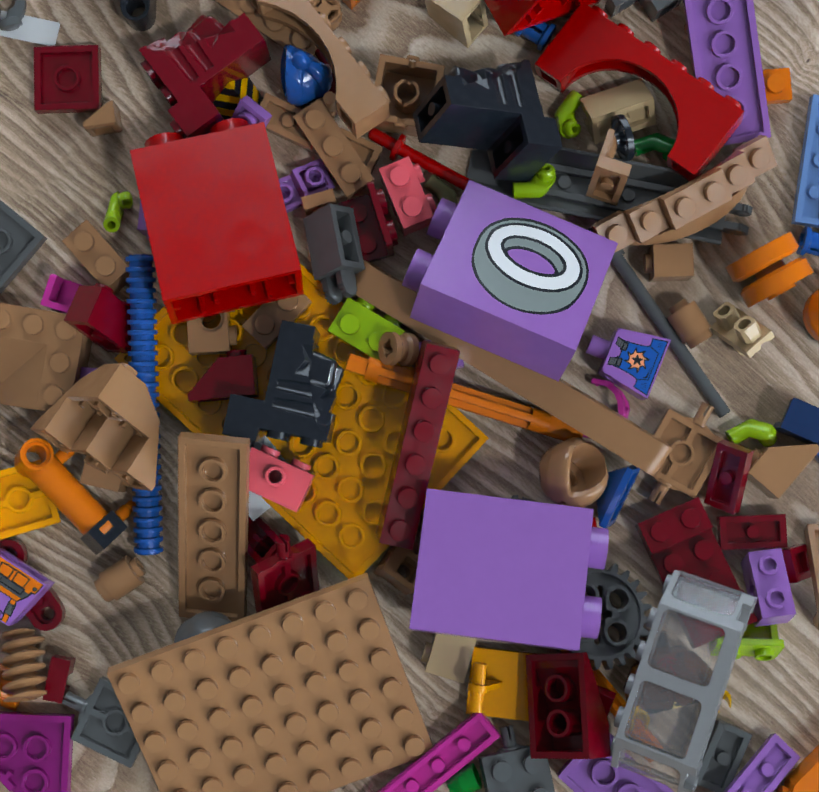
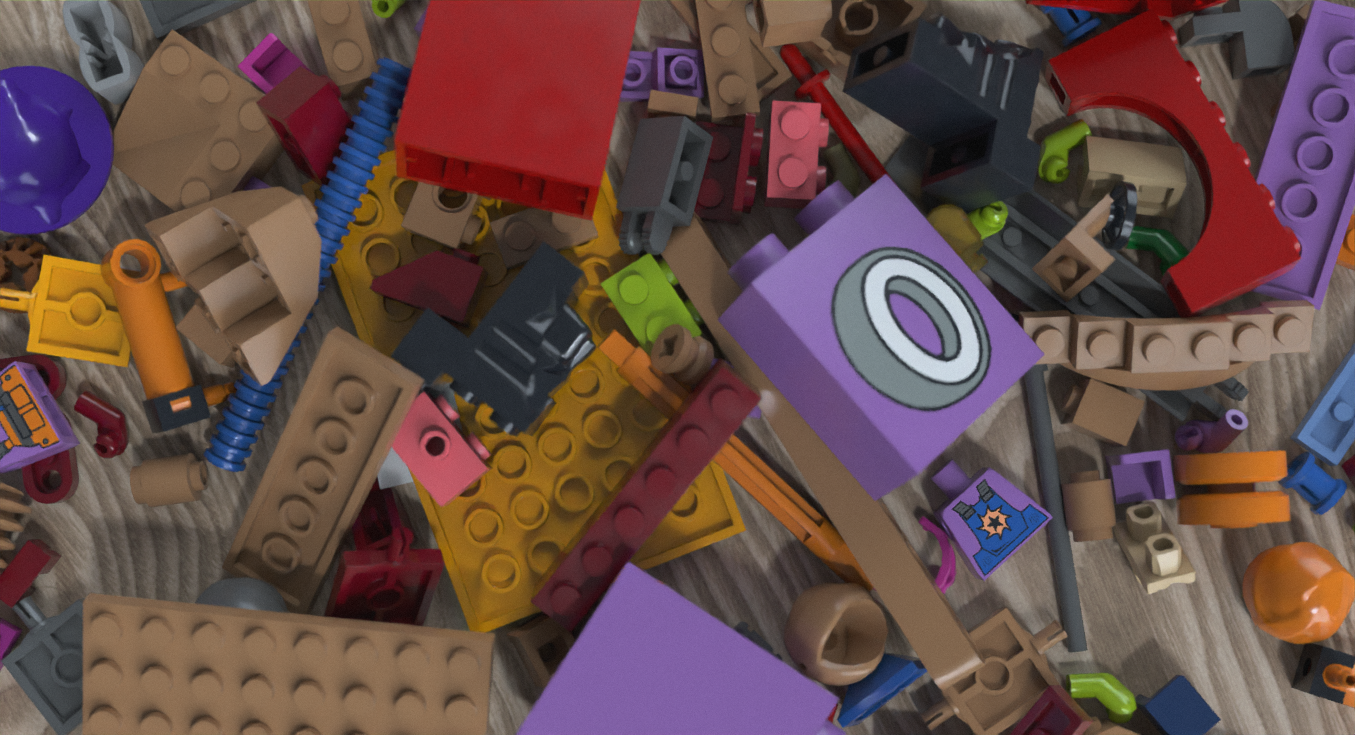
camera: 20 degrees right, 0 degrees up
(67, 562) = (110, 422): none -> dark red arm
(531, 194) = (959, 233): none -> clear yellow arm
(712, 289) = (1141, 476): none -> medium lavender panel
(743, 244) = (1211, 435): none -> medium lavender arm

